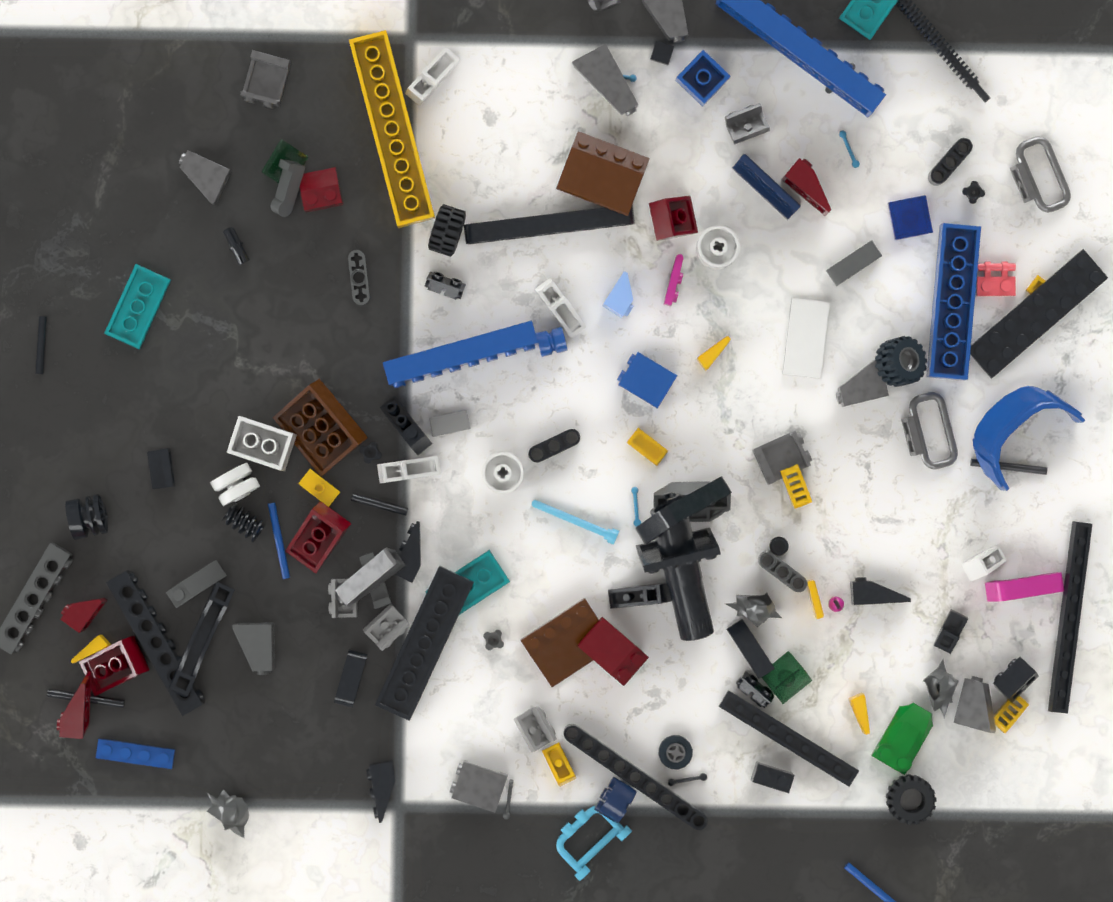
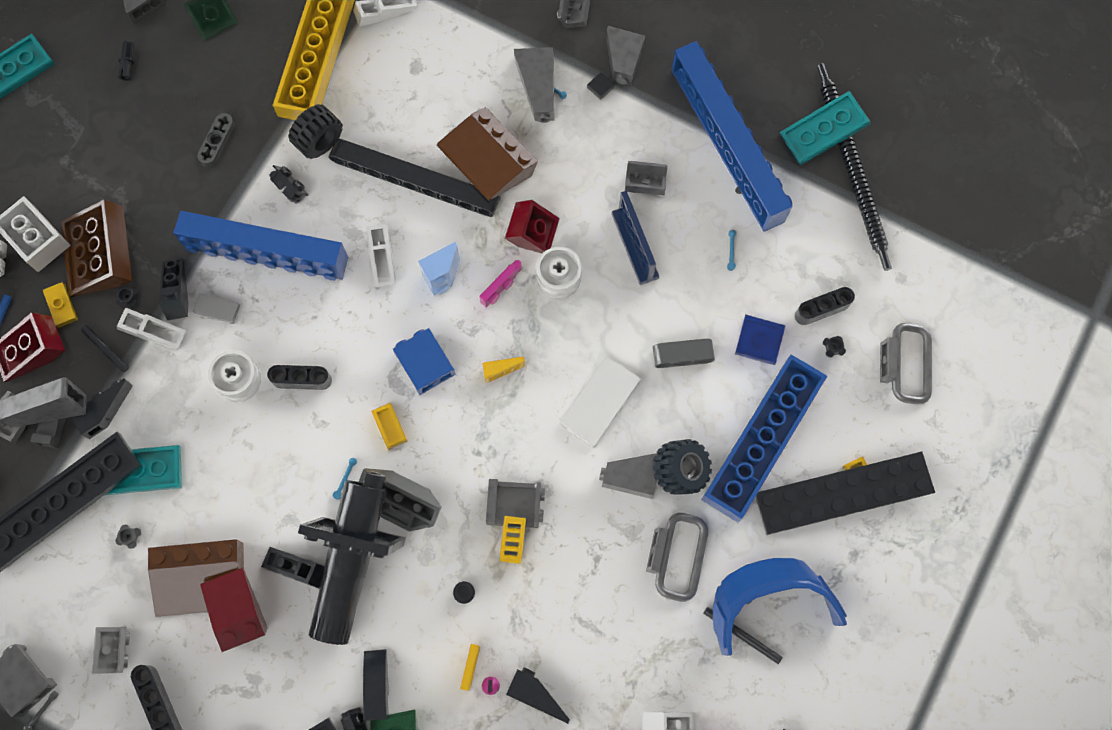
camera: 25 degrees right, 15 degrees down
(287, 187) = (200, 33): dark grey leg -> none
(320, 190) = (228, 52): dark red slope -> none
(386, 627) = (33, 466): light grey bracket -> none
(551, 341) = (355, 280): blue wheel -> none
(559, 764) = (113, 703): yellow slope -> none
(609, 535) = (302, 492): medium azure piece -> none
(682, 509) = (378, 489): black beam -> none
(702, 78) = (625, 119): blue brick -> none
(755, 608) = (403, 643): dark grey hair -> none
(791, 573) = (452, 609): dark grey beam -> none
(805, 183) = (671, 250): dark red slope -> none
(996, 285) = (814, 445): coral plate -> none

